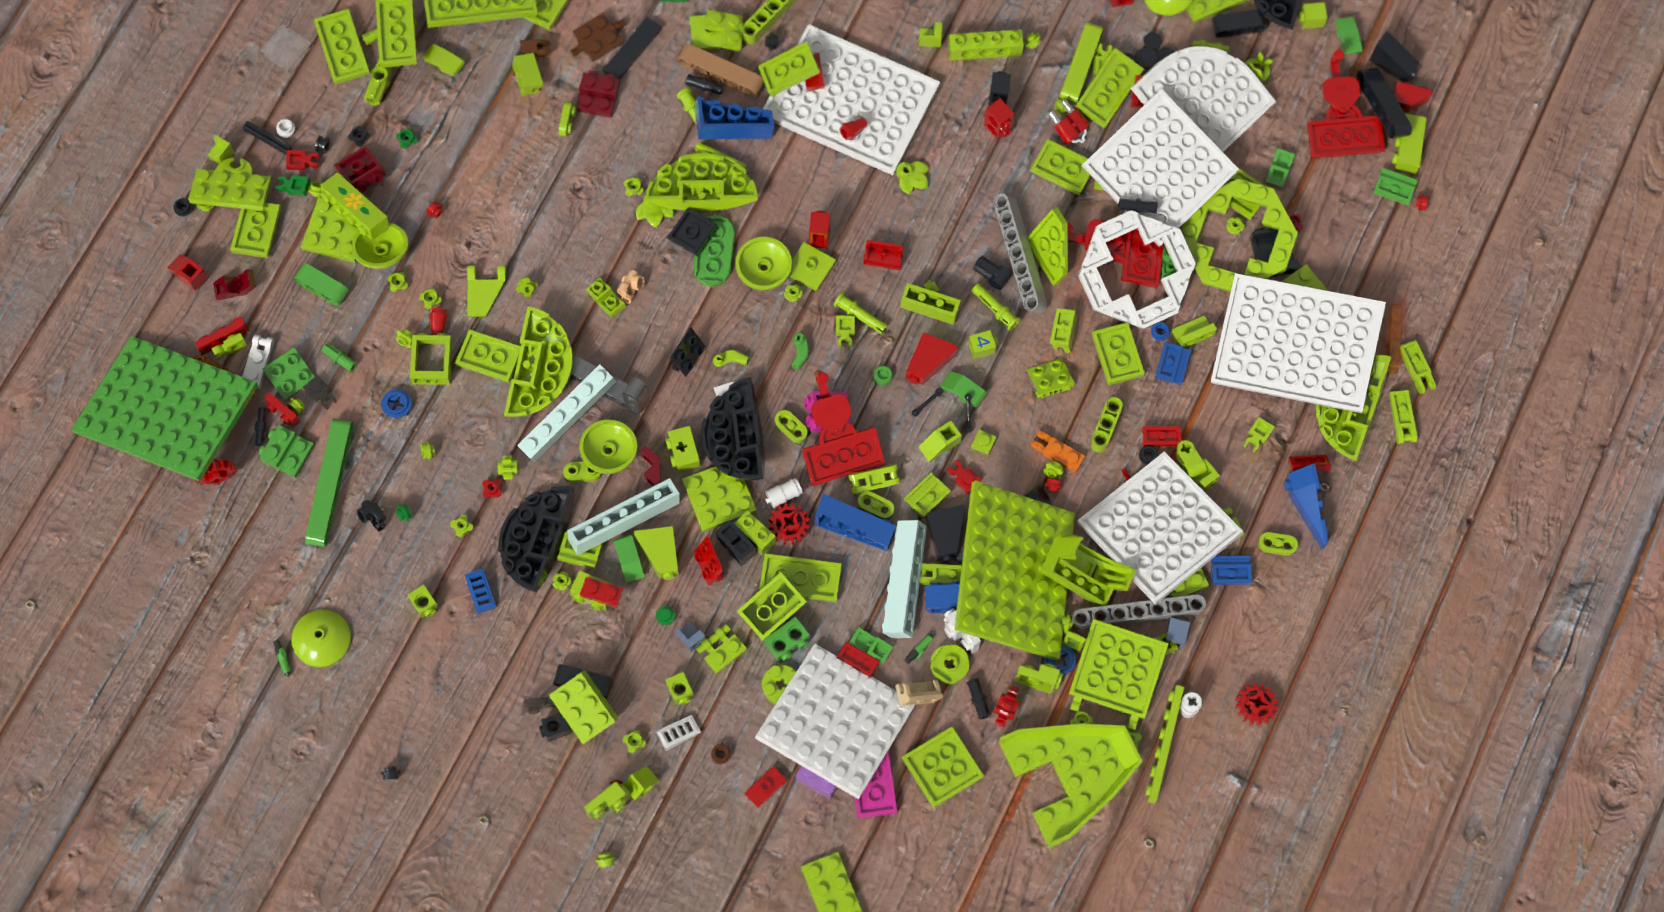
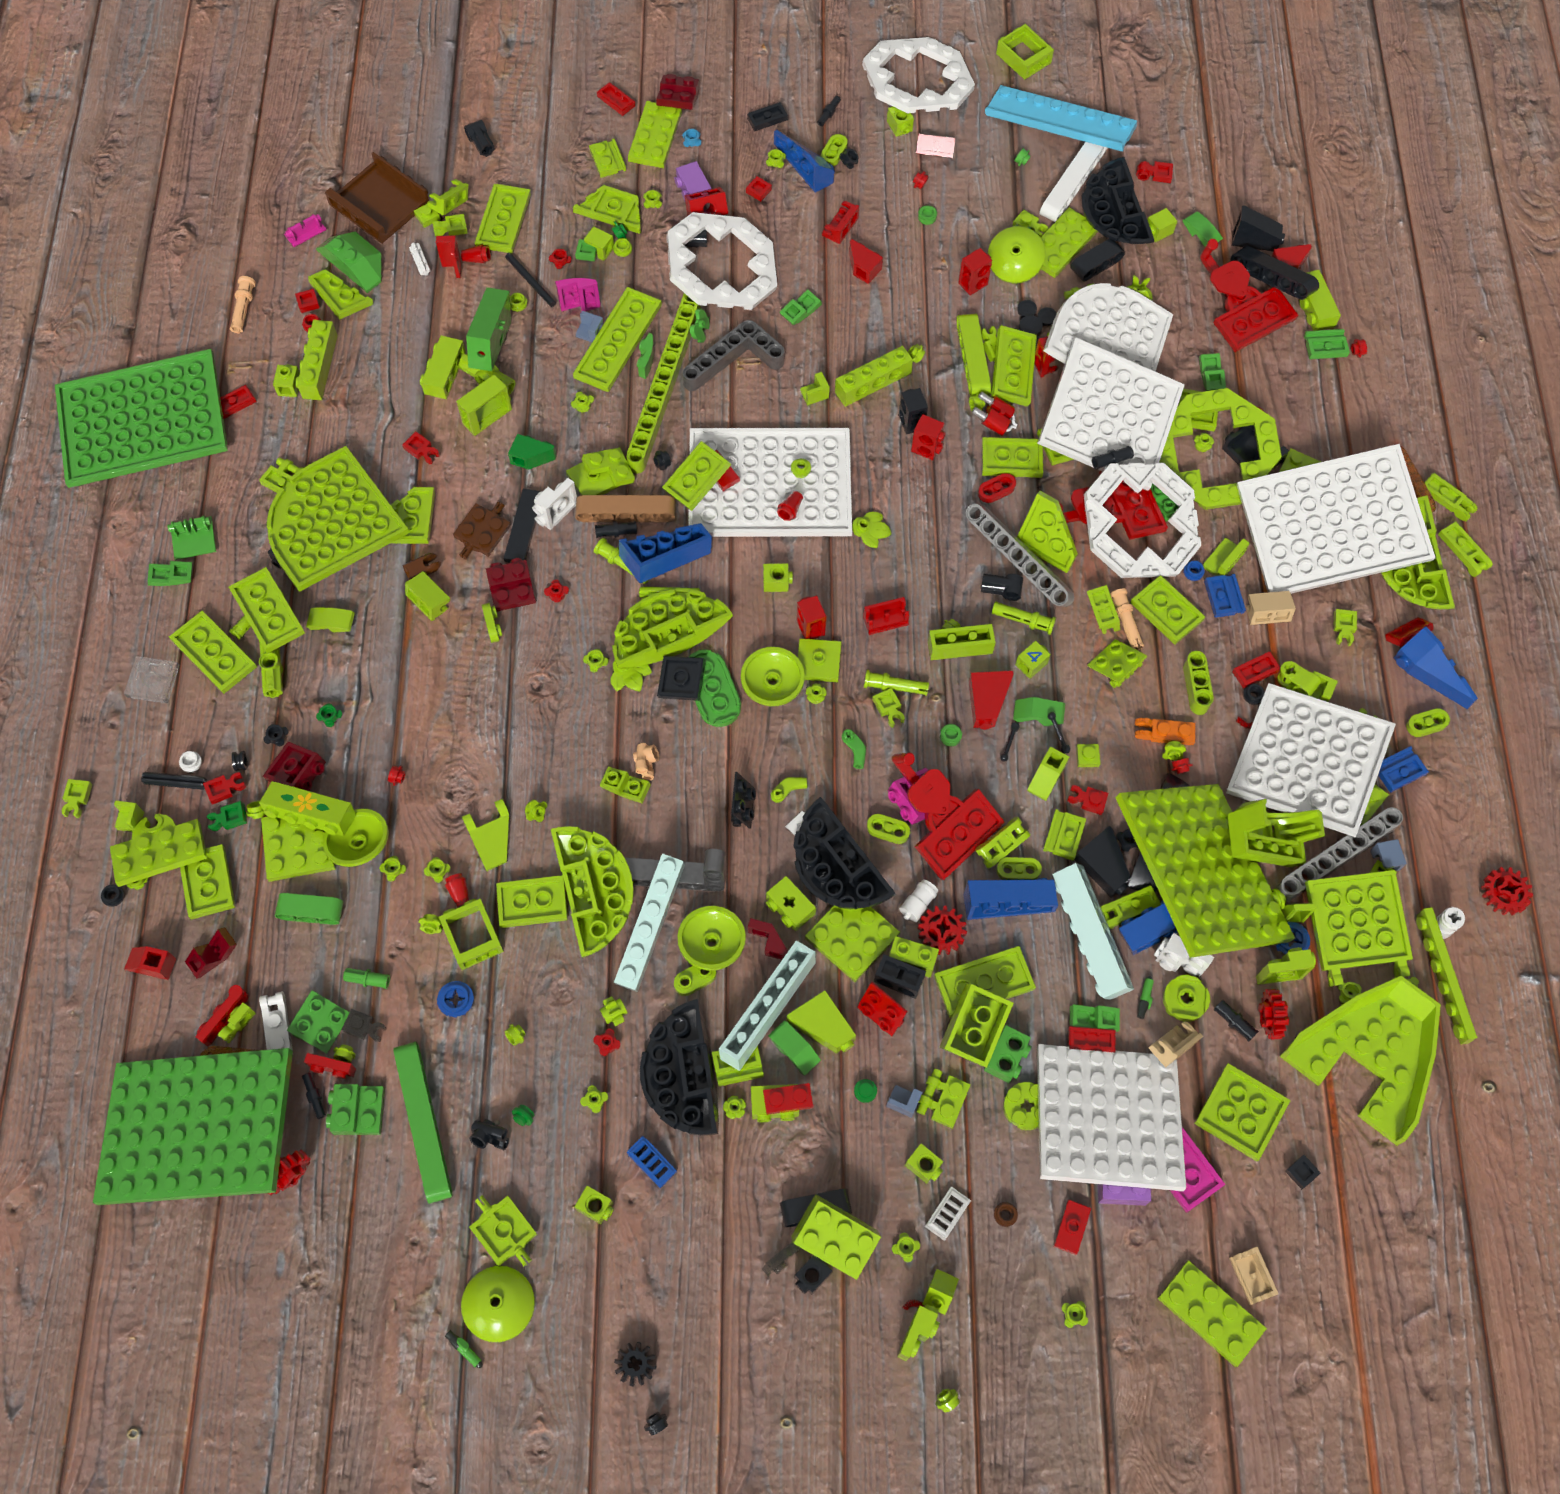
camera: 25 degrees left, 5 degrees down
(189, 116) = (76, 793): none -> lime plate
(349, 588) = (503, 1230): none -> lime plate
(388, 729) = (630, 1372): none -> black gear
(631, 120) = (556, 596): none -> red plate
(662, 44) = (554, 505): none -> white plate
(729, 842) = (1079, 1308): none -> lime plate
(811, 176) = (777, 585): none -> lime brick
(879, 103) = (800, 472): none -> lime plate
(879, 886) = (1253, 1276): none -> tan hinge
(962, 832) = (1302, 1172): none -> black plate
(1034, 186) = (995, 488): none -> red plate
(1081, 337) = (1124, 611): none -> light nougat pin
(1204, 390) = (1270, 607): none -> tan hinge

